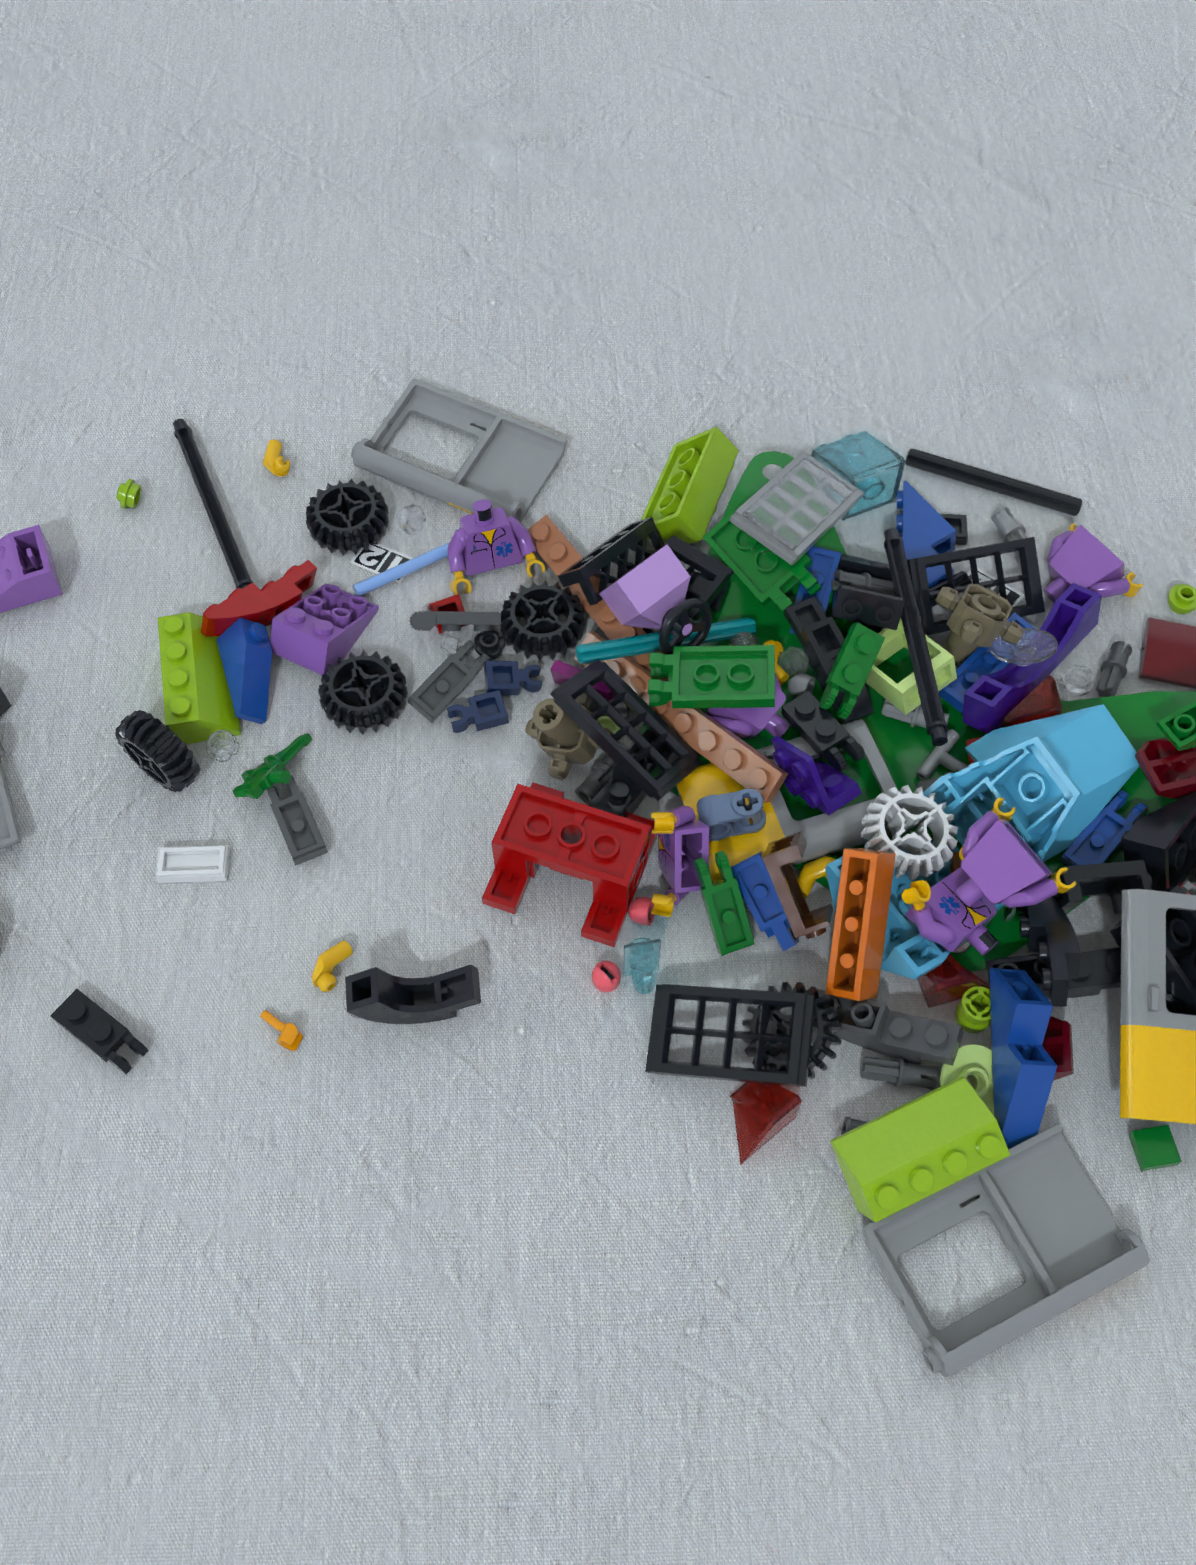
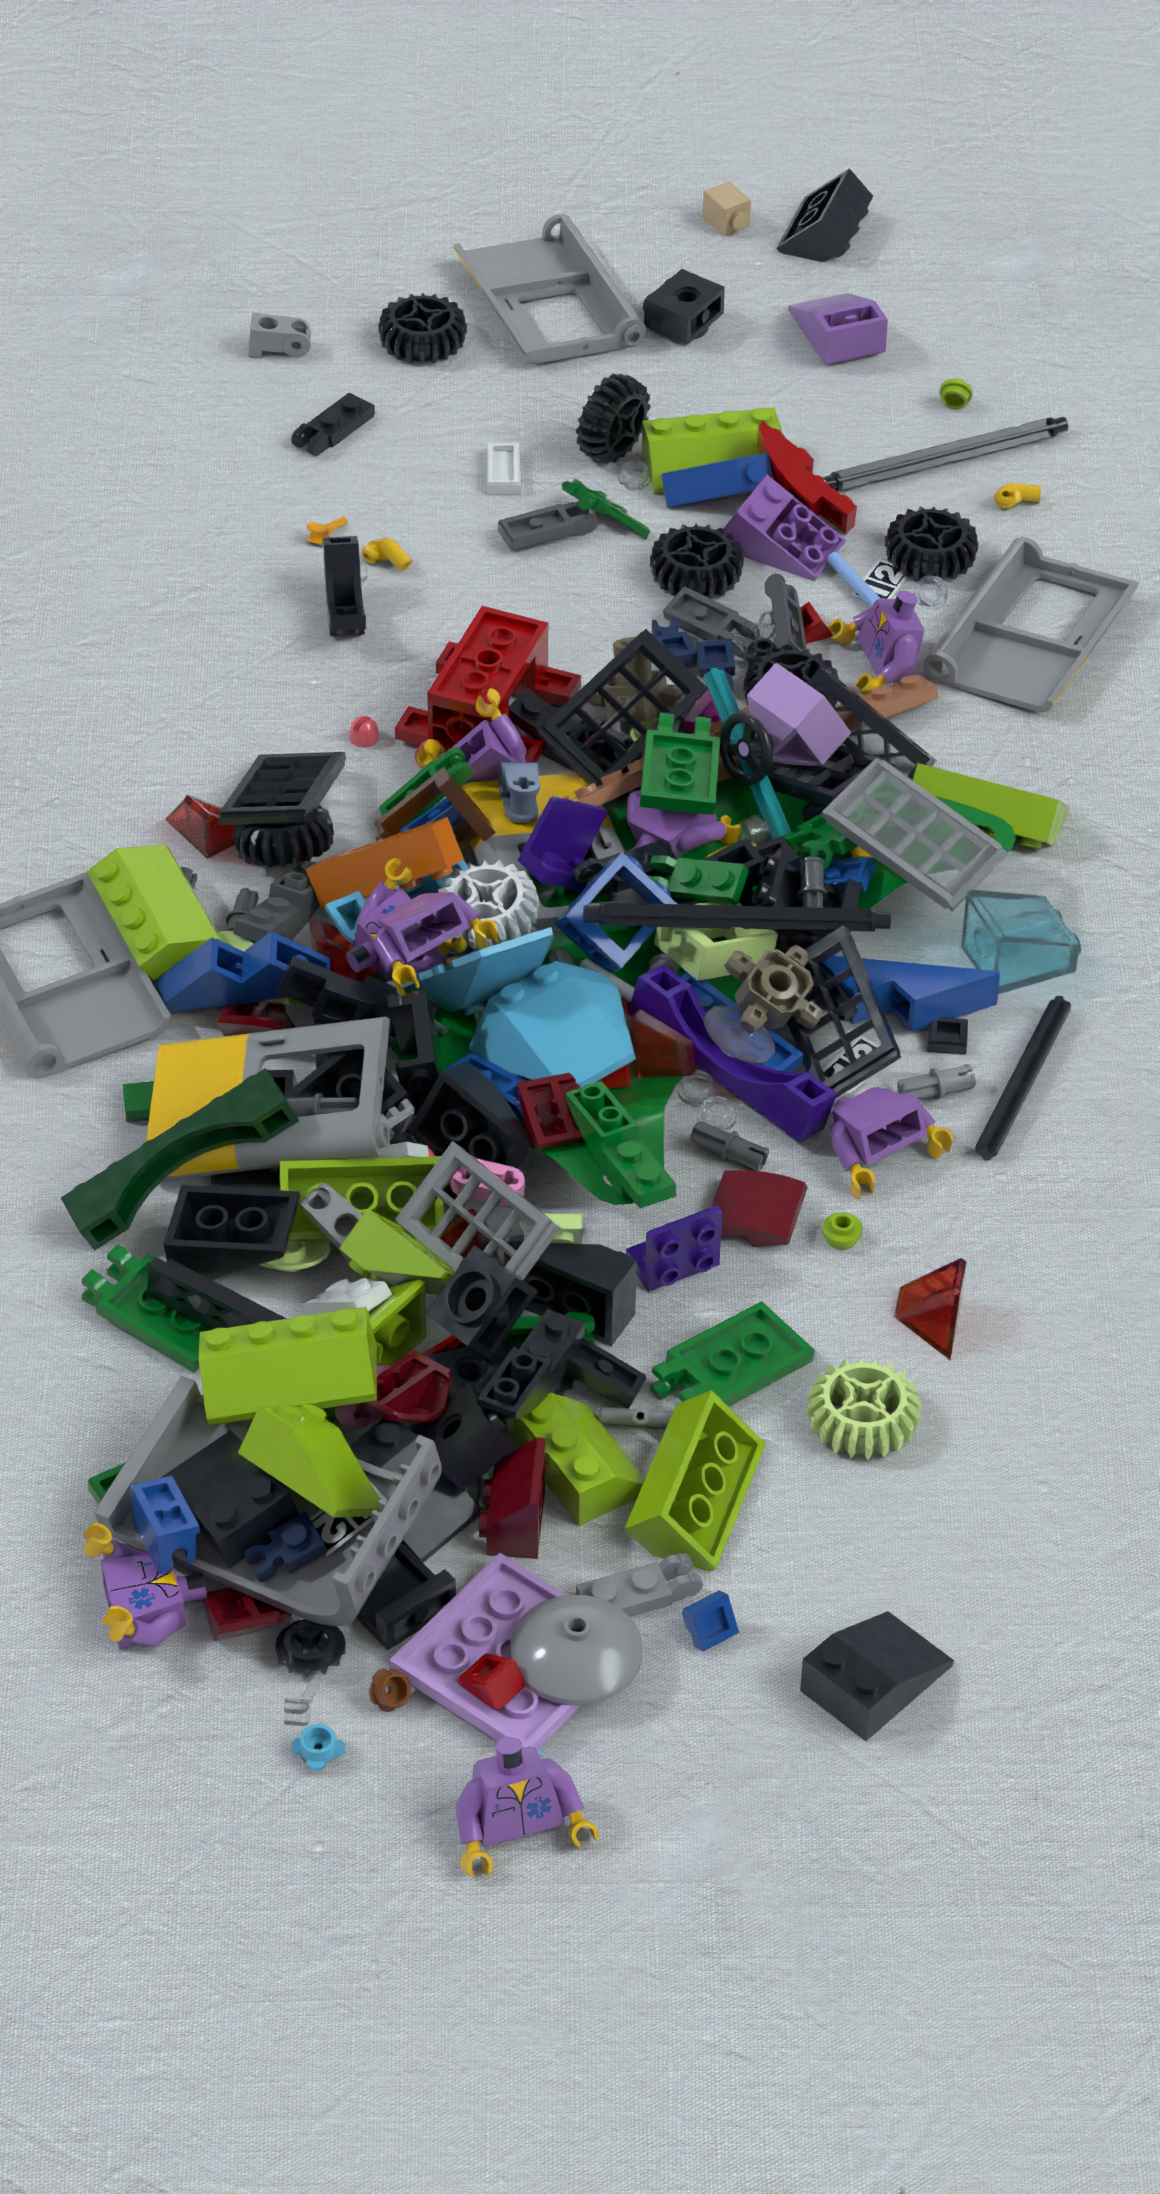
camera: 90 degrees right, 15 degrees down
(640, 960) = (360, 722): clear light blue hinge -> none
(890, 734) = (589, 936): none -> blue window

